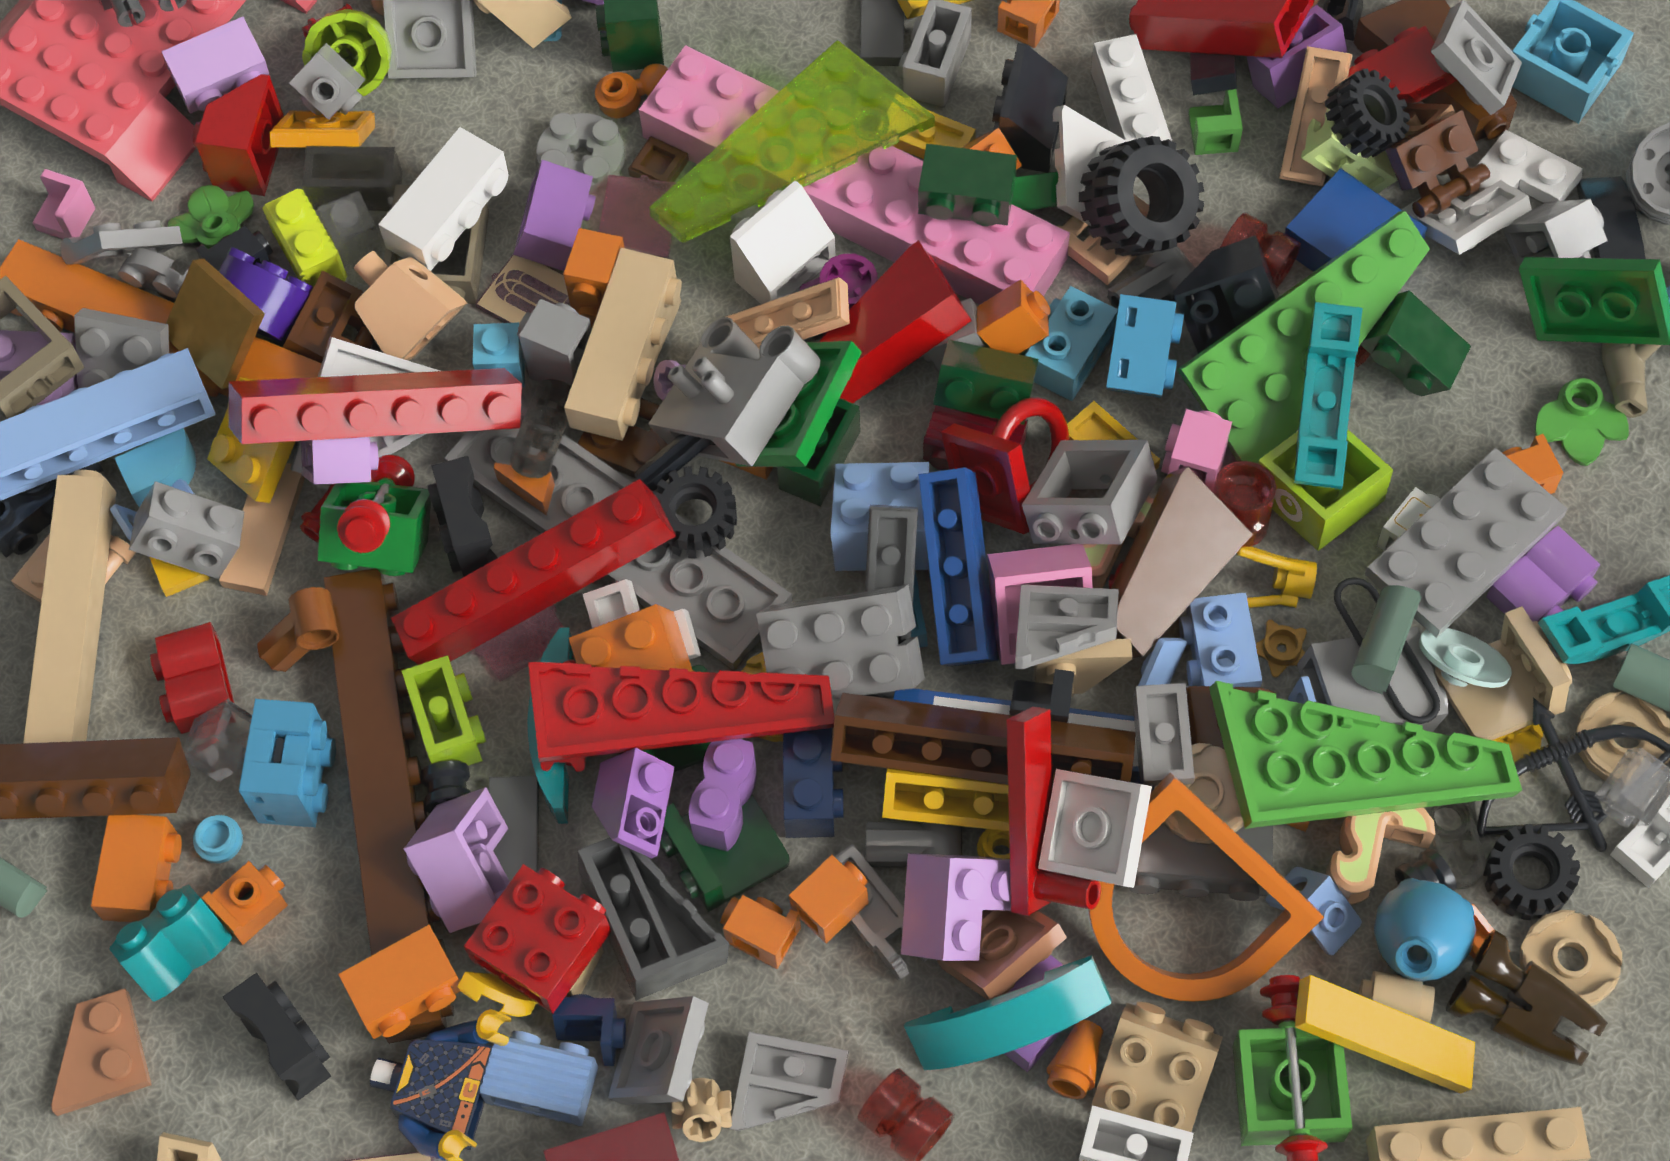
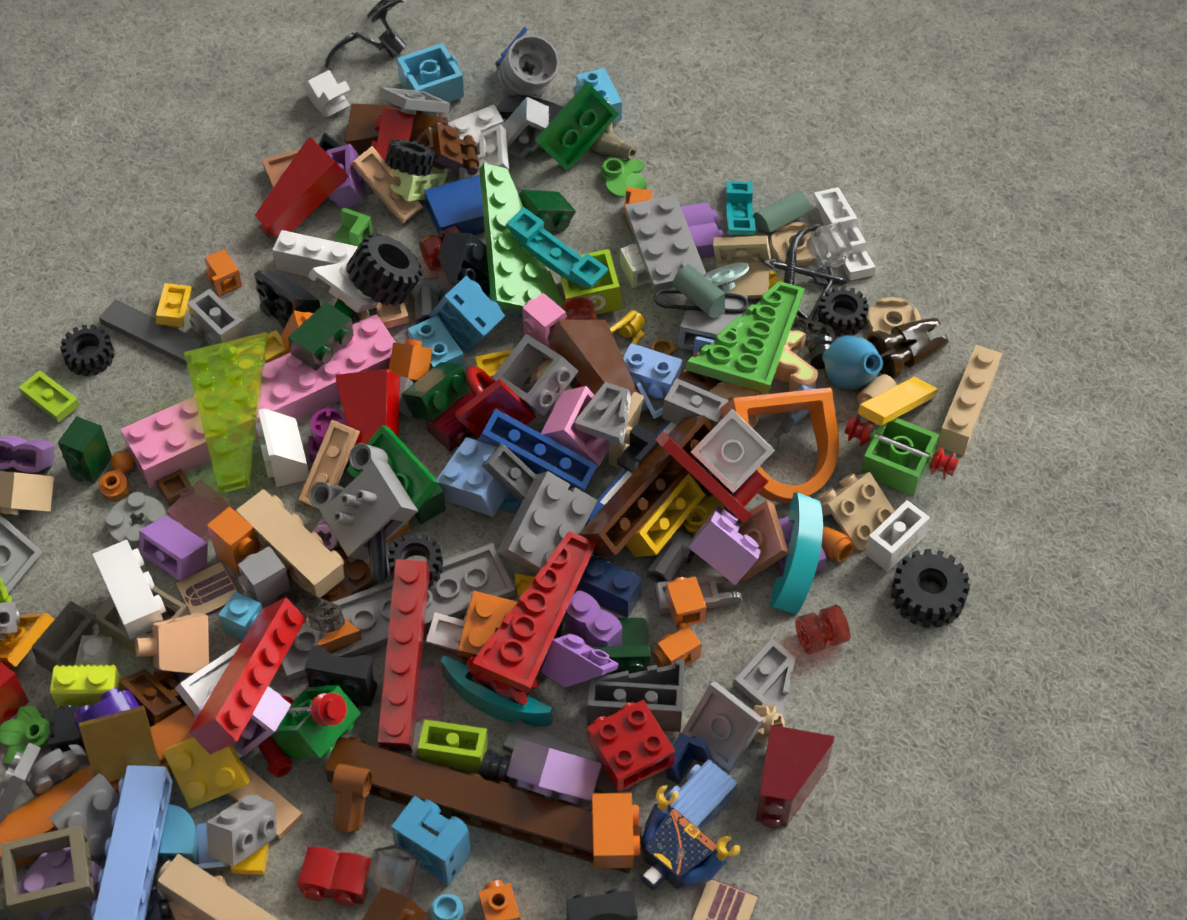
camera: 65 degrees left, 10 degrees down
(485, 984) = (642, 788): yellow tile -> none
(1212, 73) = (326, 214): black tile -> none

